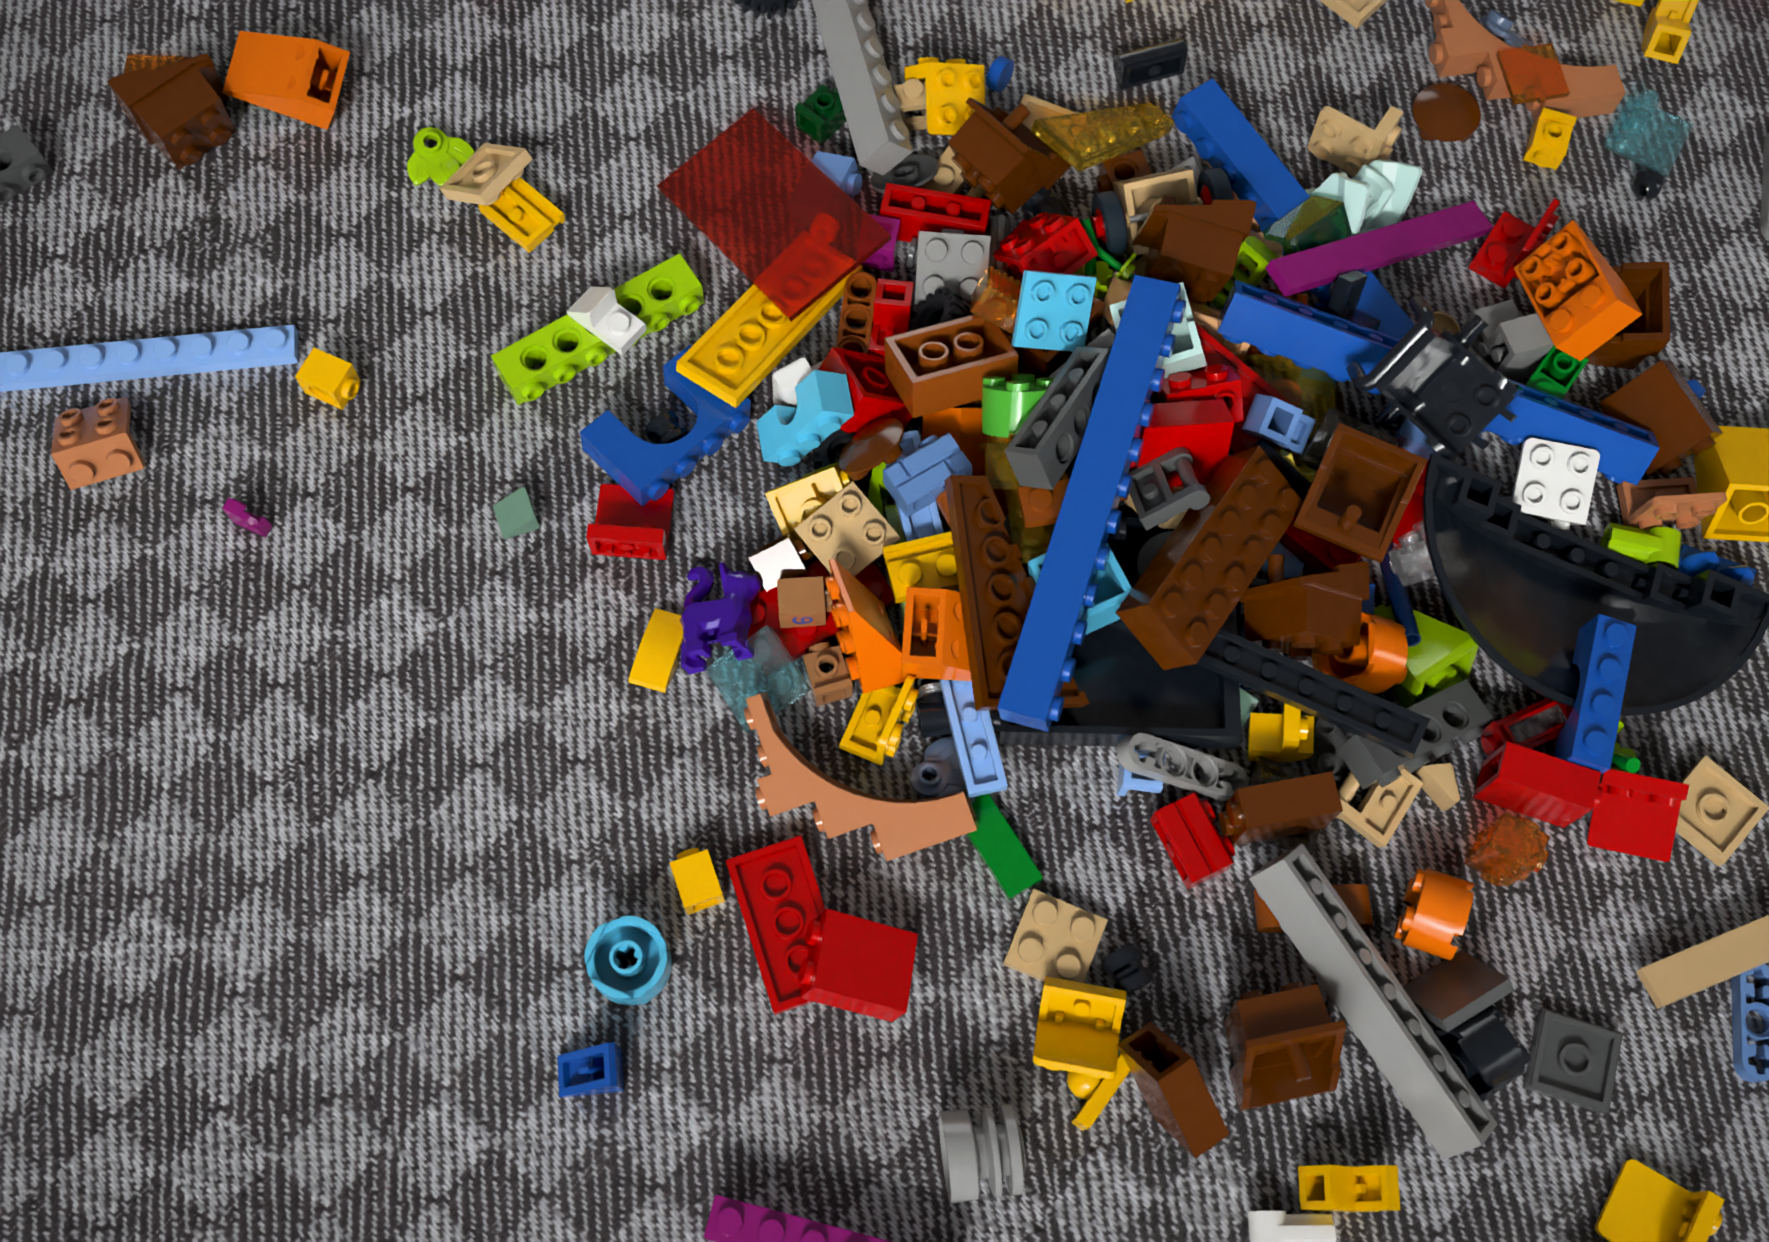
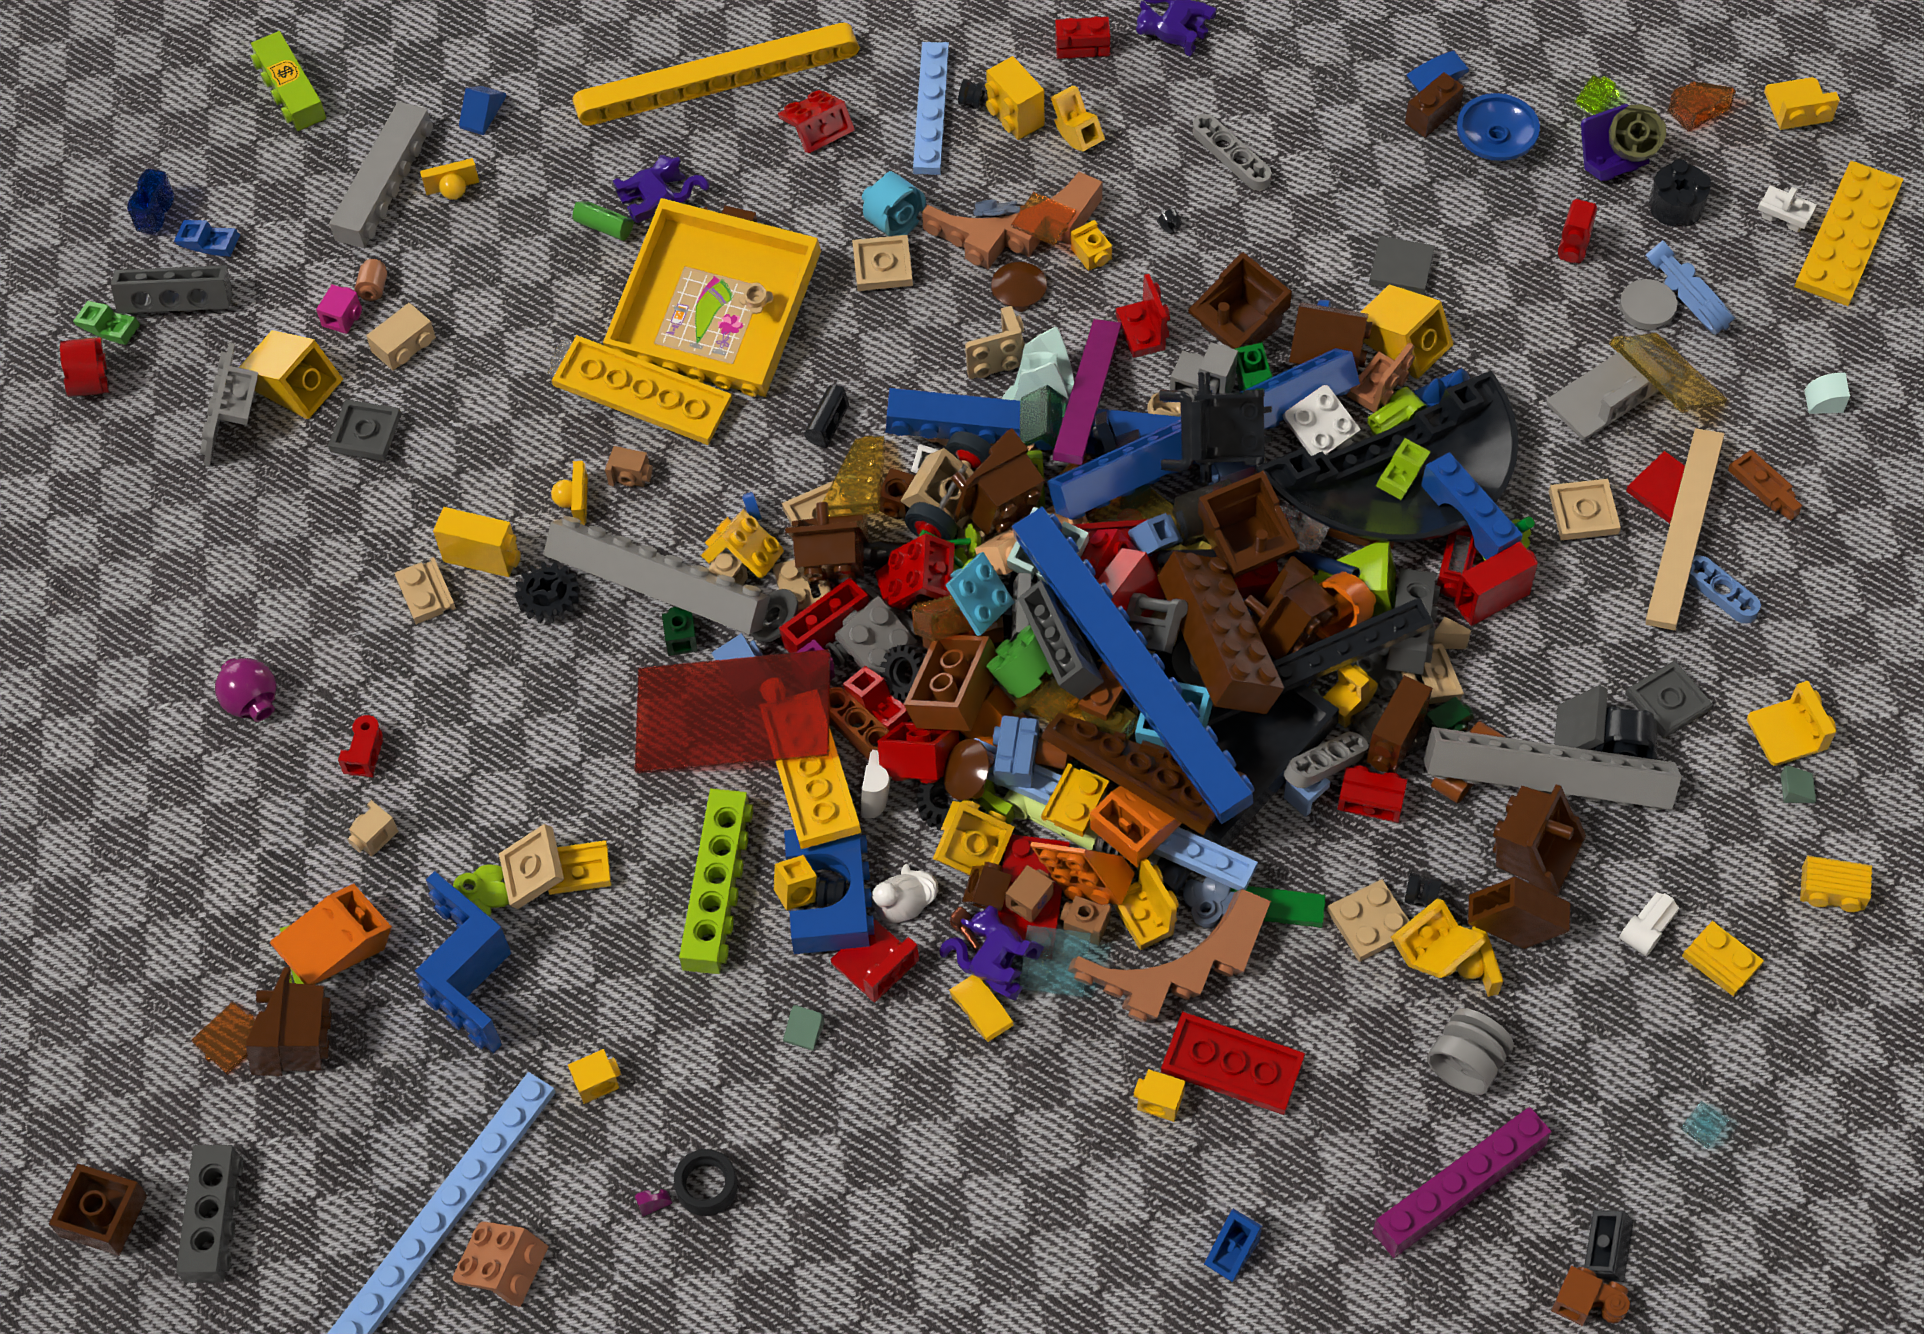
camera: 45 degrees left, 10 degrees down
(291, 522) = (702, 1158): none -> black tyre
(344, 192) = (462, 963): none -> blue bracket
(424, 31) = (372, 830): none -> tan brick
(606, 319) = (717, 866): white slope -> none
(620, 939) = (1189, 1154): medium azure brick -> none
(647, 393) = (795, 882): none -> yellow brick
(718, 495) = (904, 895): none -> white hair
(735, 561) = (955, 922): none -> copper hand
(821, 409) = (916, 778): medium azure arch -> none
(847, 531) = (1008, 830): tan hinge -> none
(858, 965) = (1298, 1035): red brick -> none
(1342, 854) = (1451, 716): none -> dark green brick
(1349, 1188) = (1650, 870): yellow brick -> none
(1435, 913) = (1526, 697): orange brick -> none
(1508, 850) = (1521, 629): clear orange brick -> none
(1576, 292) = (1218, 313): orange slope -> none
(1581, 598) = (1403, 469): none -> lime slope
(1636, 815) = (1557, 547): red bracket -> none
(1648, 134) = (1136, 192): clear light blue hinge -> none

